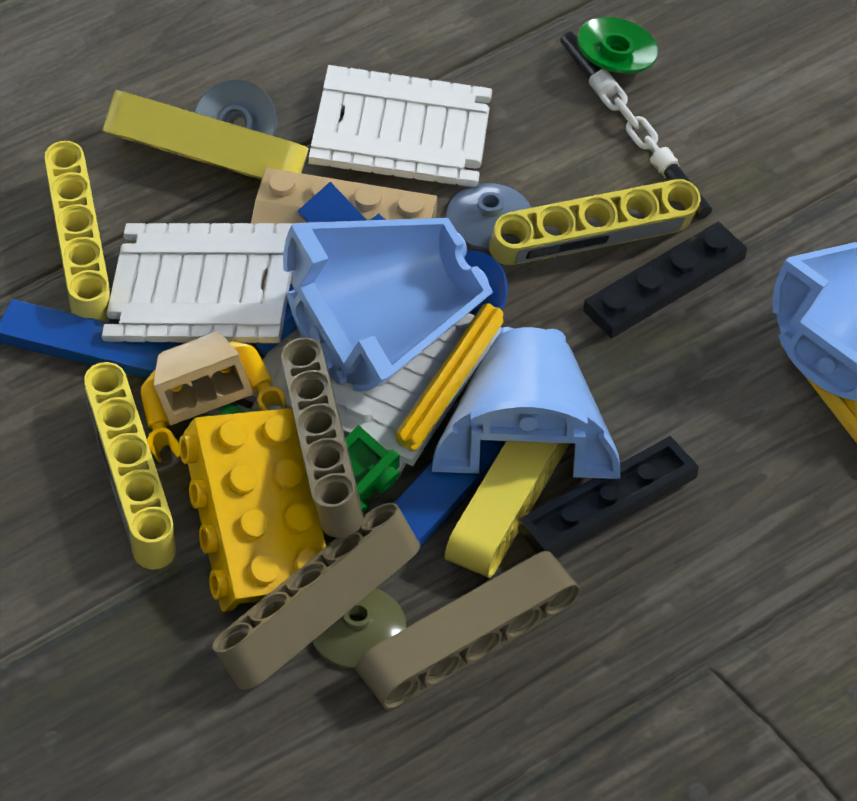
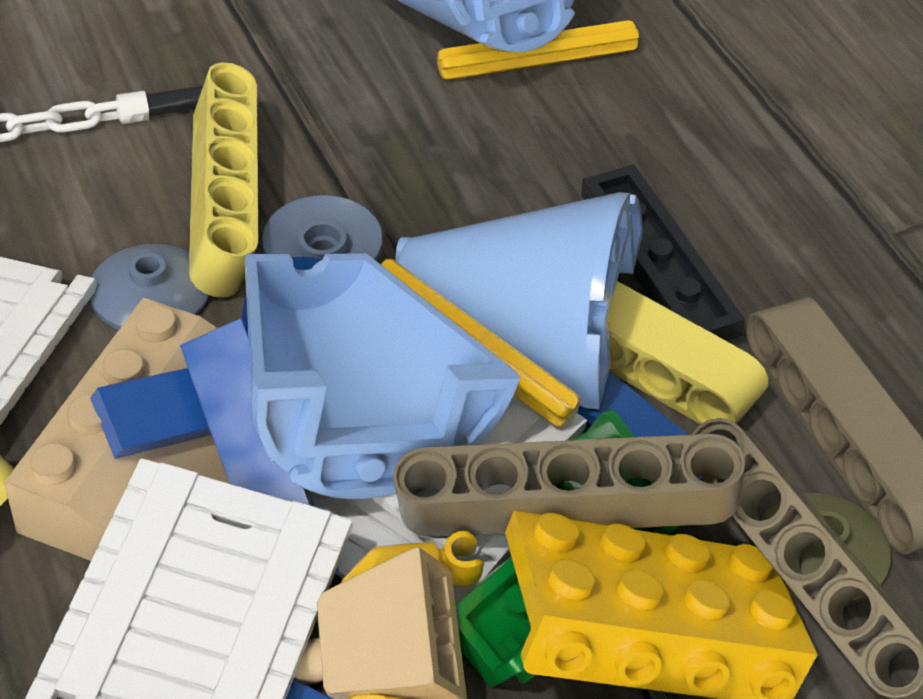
camera: 80 degrees left, 5 degrees down
(550, 291) = (322, 227): none -> sand blue dish
(664, 279) = (321, 141): black plate -> none

